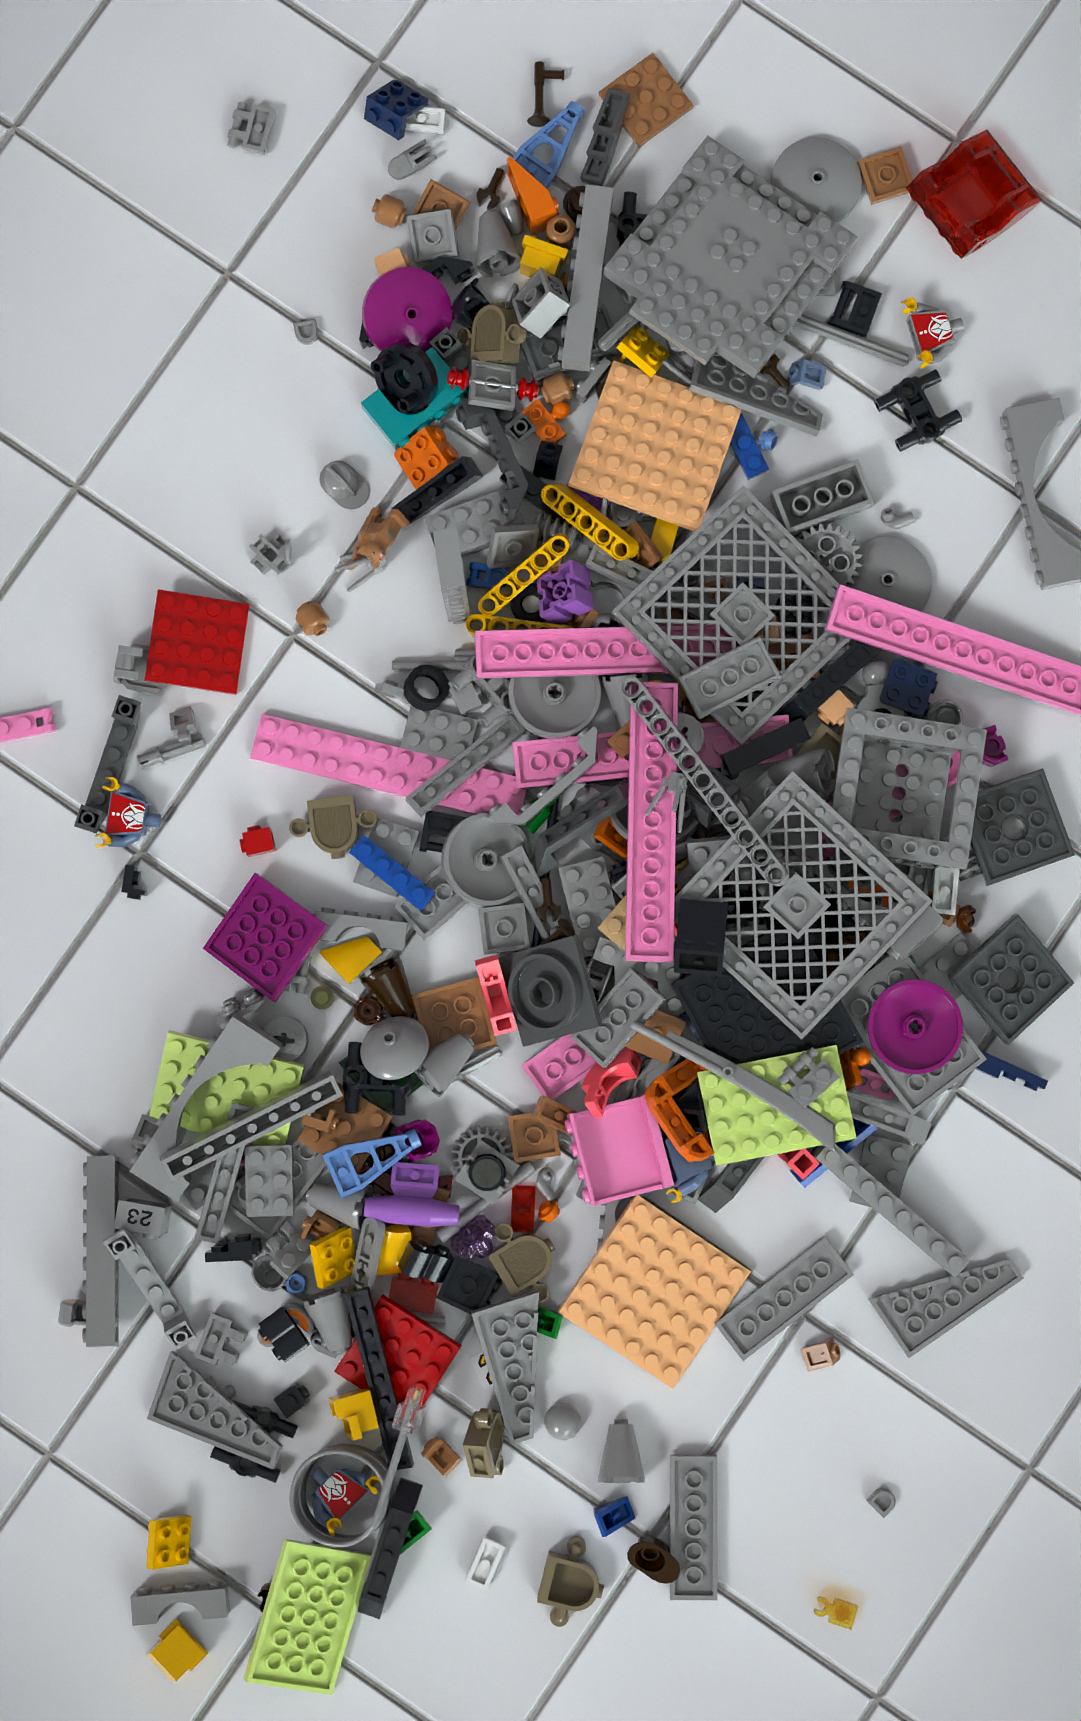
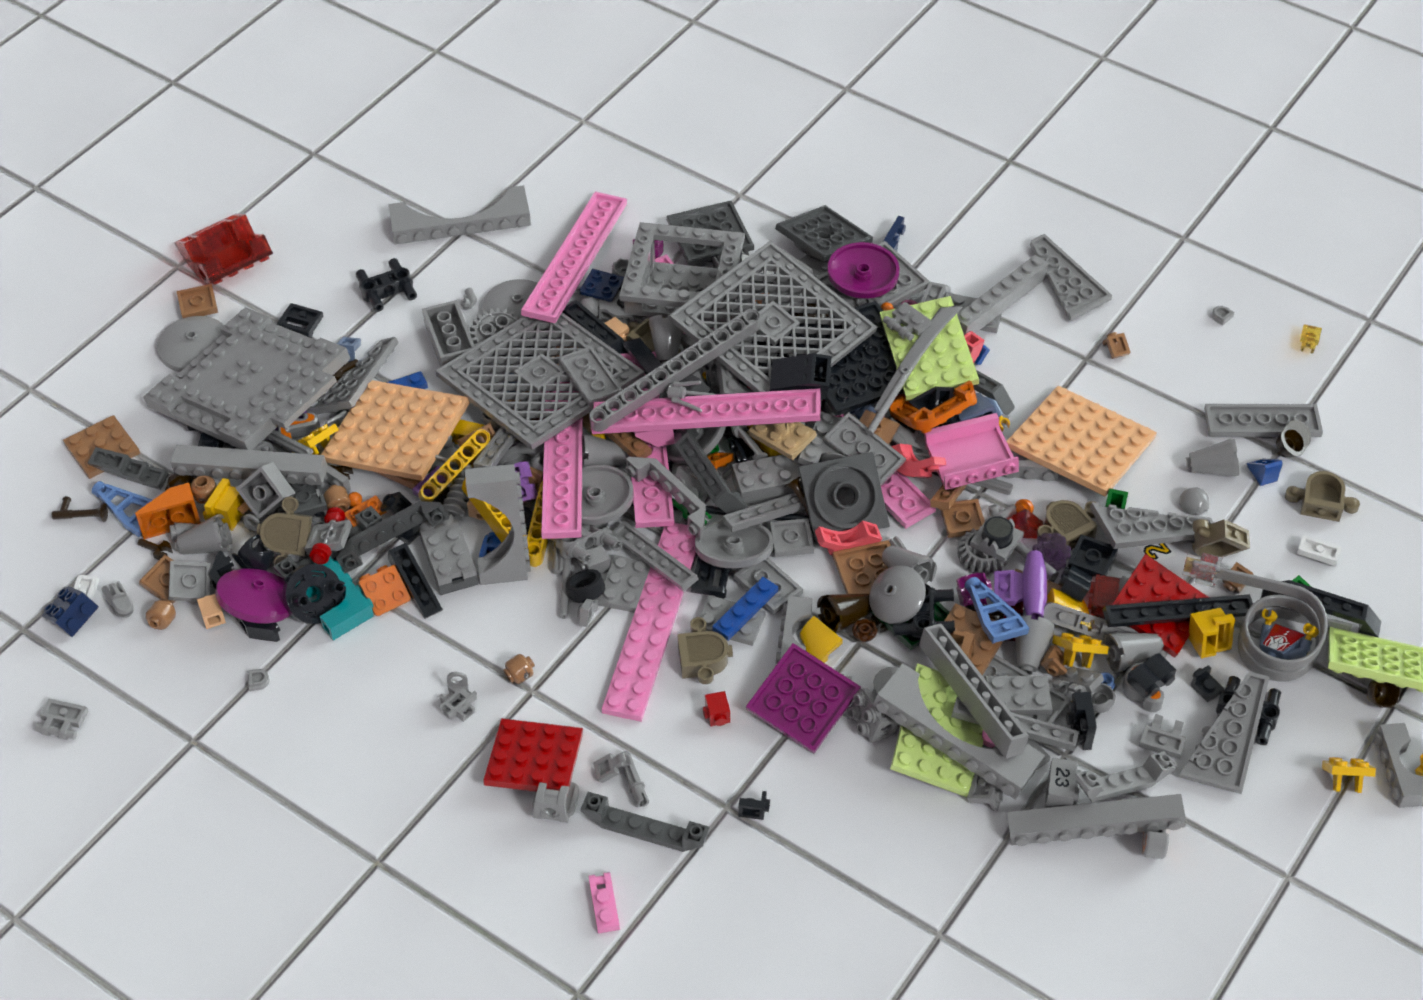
camera: 90 degrees left, 35 degrees down
(126, 816) = (692, 806): torso -> none
(322, 997) = (854, 664): olive plate -> none
(344, 485) = (399, 652): light grey piece -> none
(358, 562) = (471, 627): light grey plant -> none
(377, 536) = (448, 619): medium nougat animal -> none
(511, 545) = (469, 522): light grey plate -> none
(548, 902) = (778, 499): dark brown bar -> none
(768, 439) = (397, 371): medium blue plate -> none
(783, 1298) = (1077, 366): light grey plate -> none
(852, 340) = (330, 315): light grey axle -> none
(930, 331) = (326, 276): torso -> none

